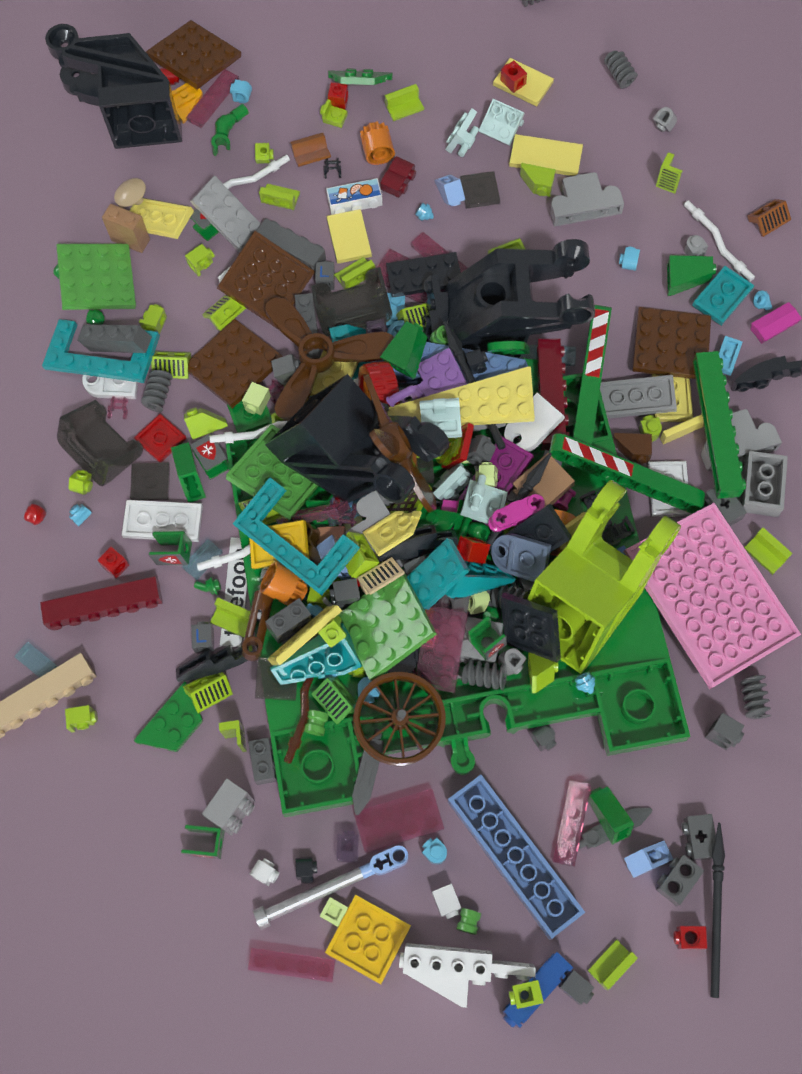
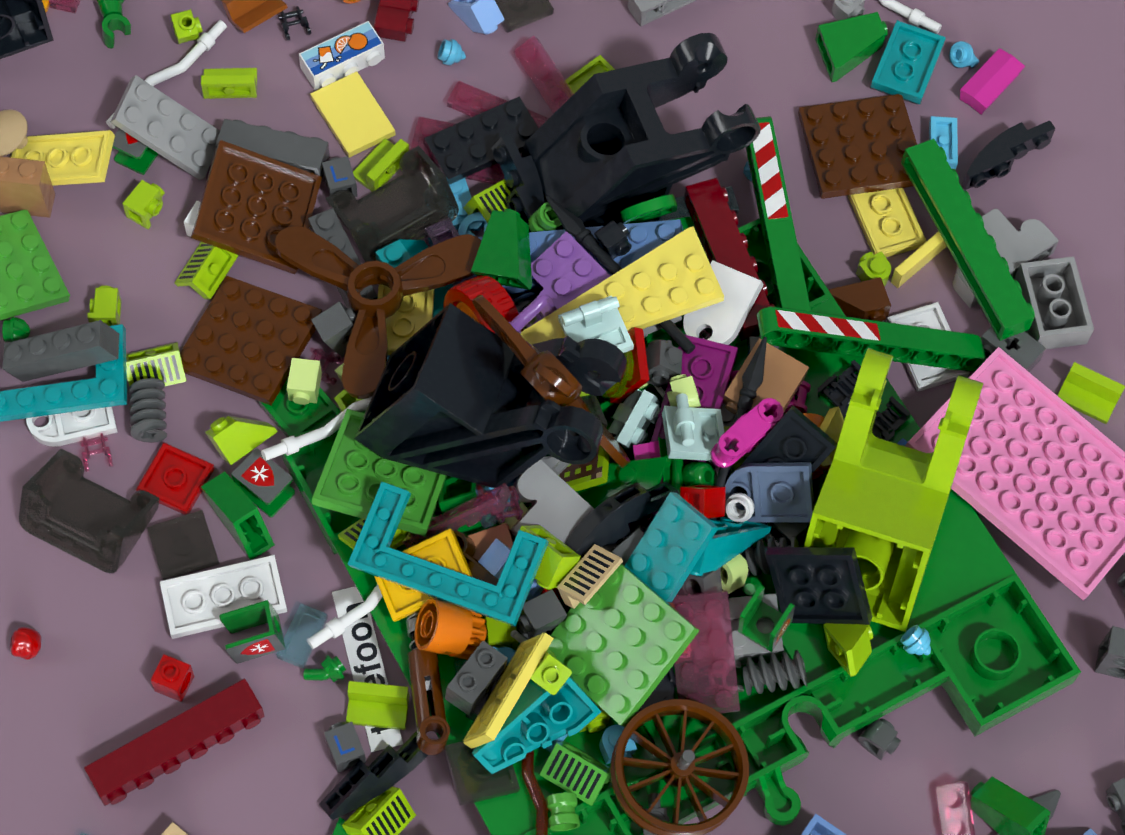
camera: 25 degrees left, 5 degrees down
(79, 514) = (92, 623): medium azure plate -> none
(80, 482) = (80, 576): lime plate -> none
(392, 530) = (581, 507): light yellow tile -> none
(478, 237) = (543, 73): none -> clear pink plate
(492, 560) = (736, 514): none -> white plate
(512, 660) = (805, 640): light grey plate -> none
(630, 258) = (763, 44): medium azure plate -> none
(639, 396) = (847, 229): light grey plate -> none

